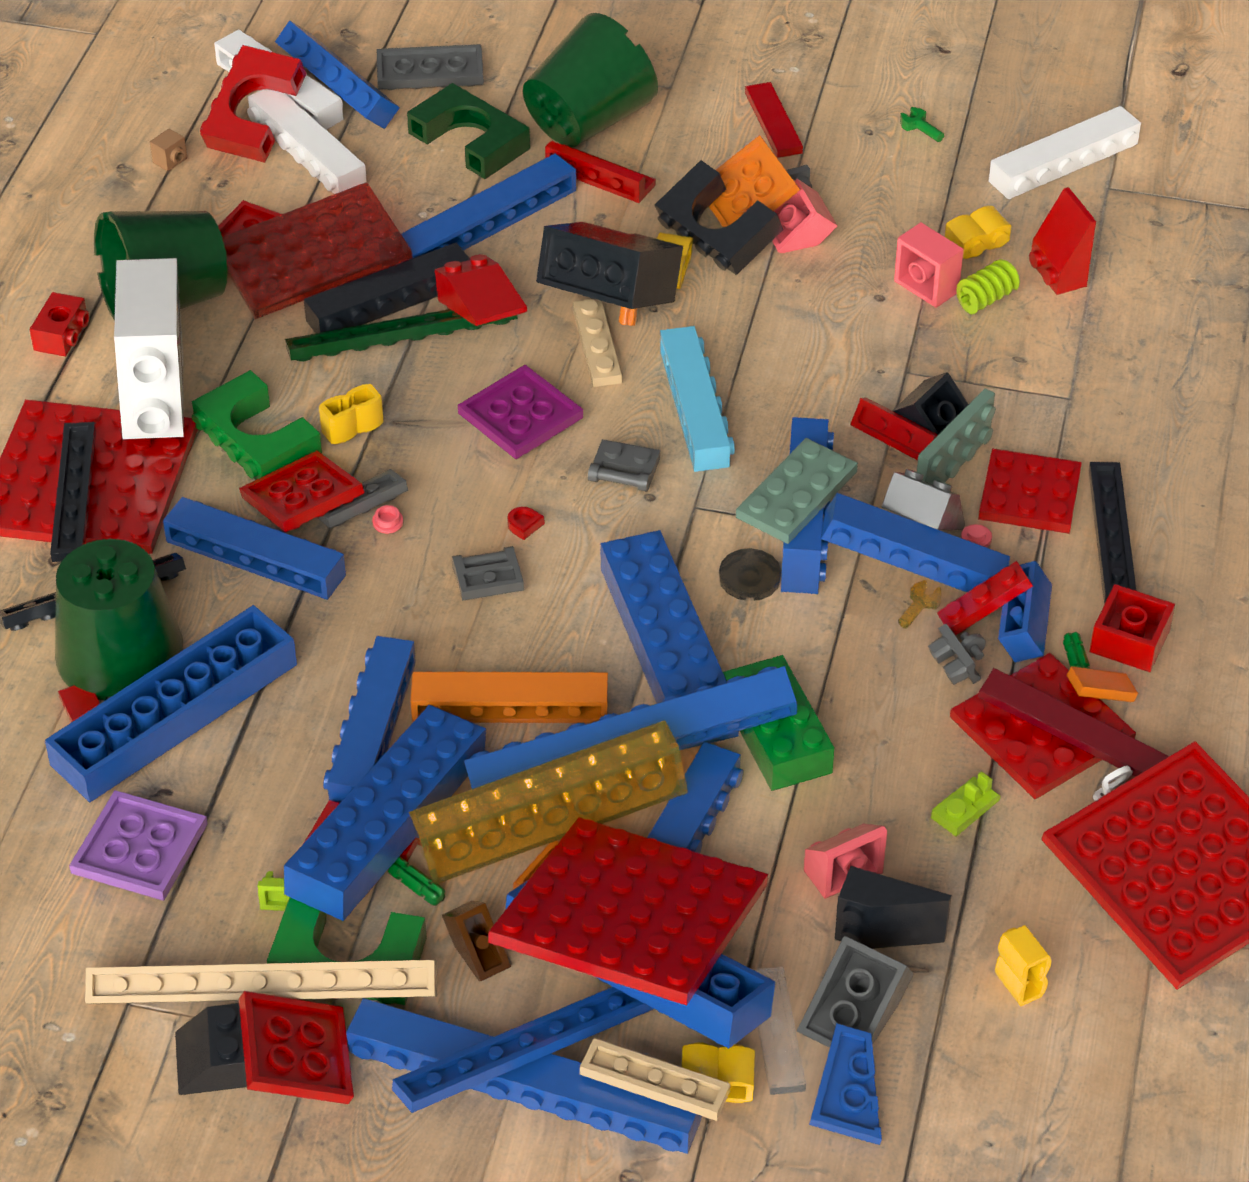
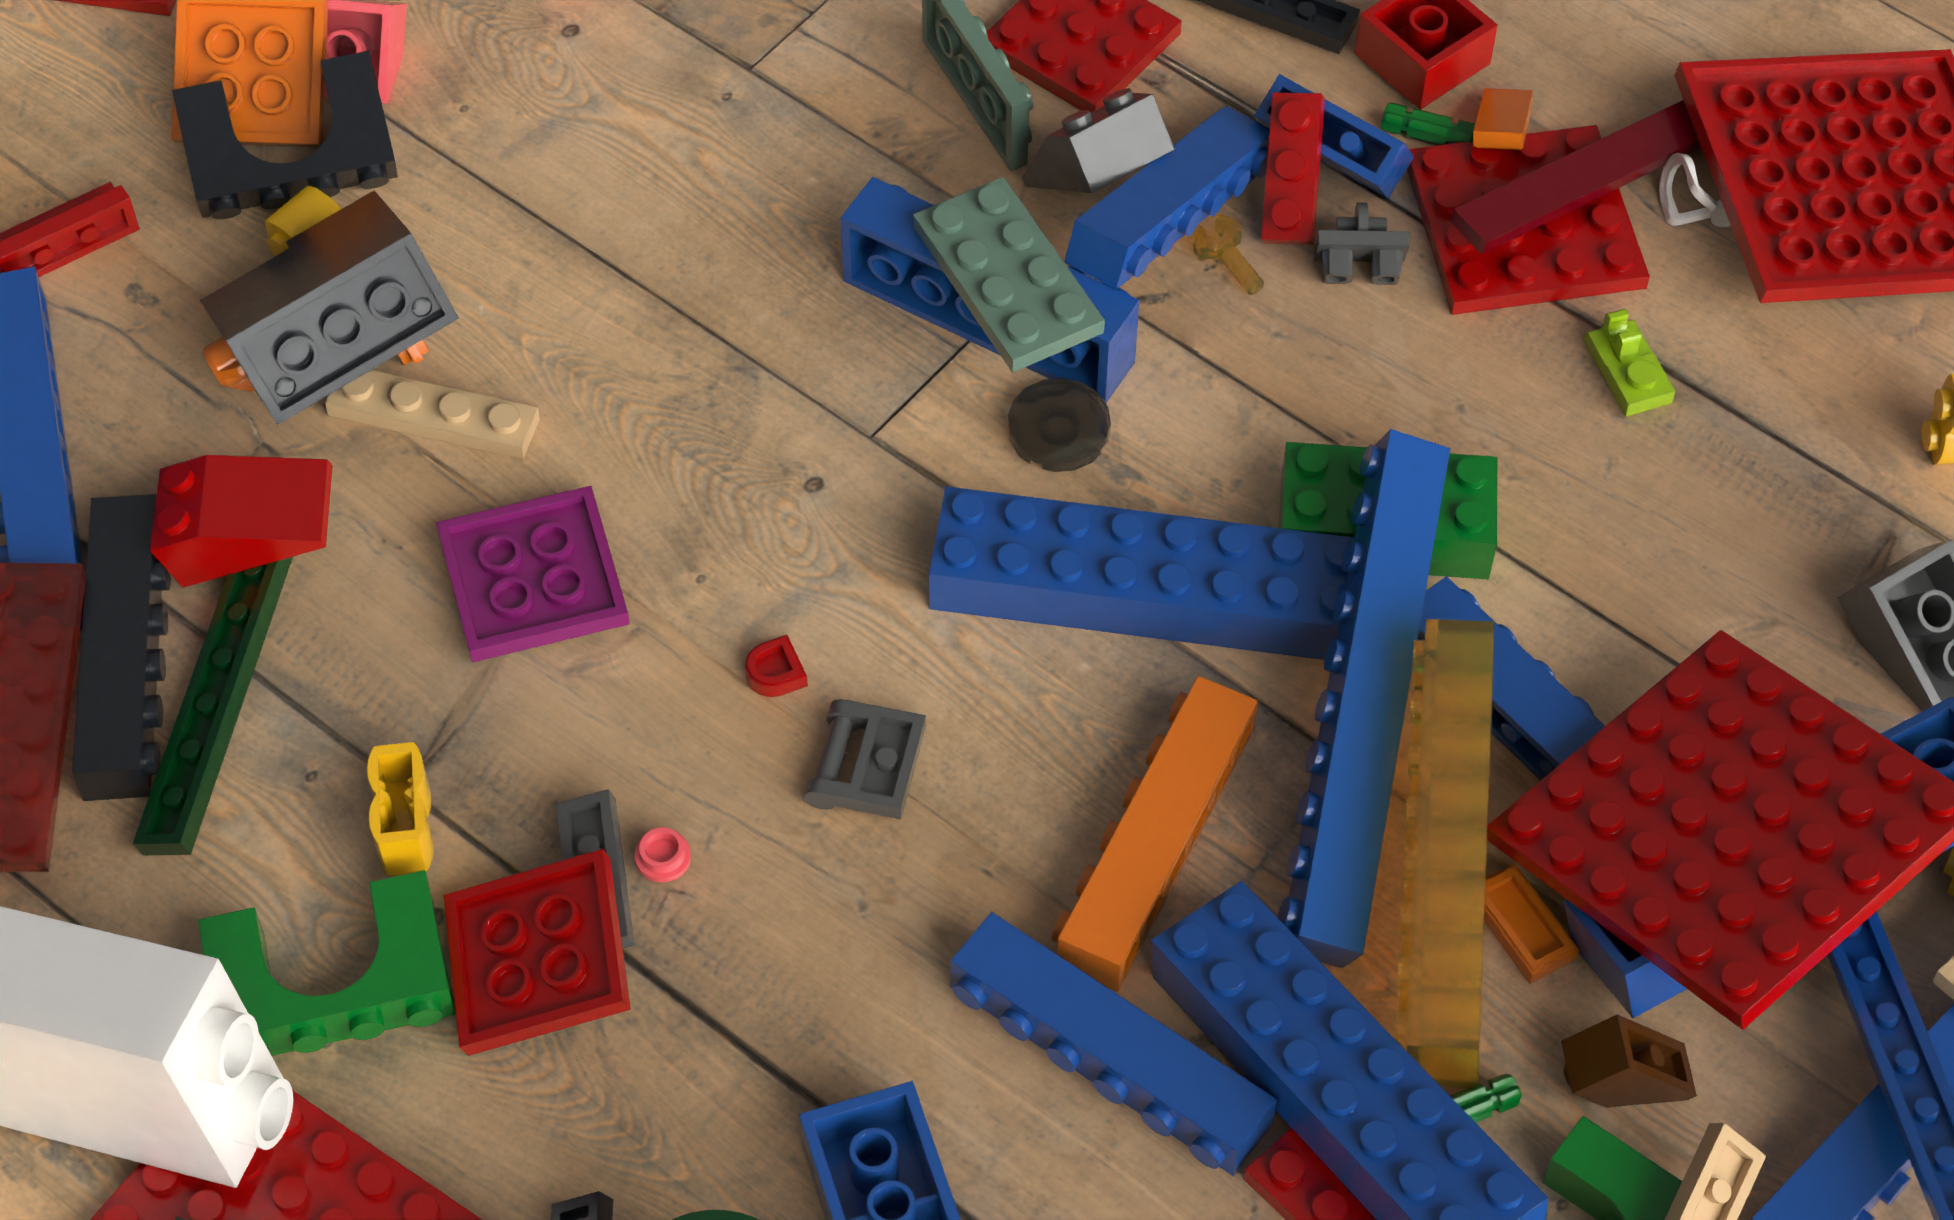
camera: 65 degrees left, 10 degrees up
(255, 548) = (615, 1076): blue brick -> none
(624, 464) = (725, 477): dark grey plate -> none
(696, 399) = (655, 334): medium azure brick -> none
(830, 860) = (1686, 533): coral slope -> none
(890, 911) = (1807, 535): black slope -> none
(891, 428) = (880, 127): red plate -> none
(933, 403) = (873, 67): black slope -> none

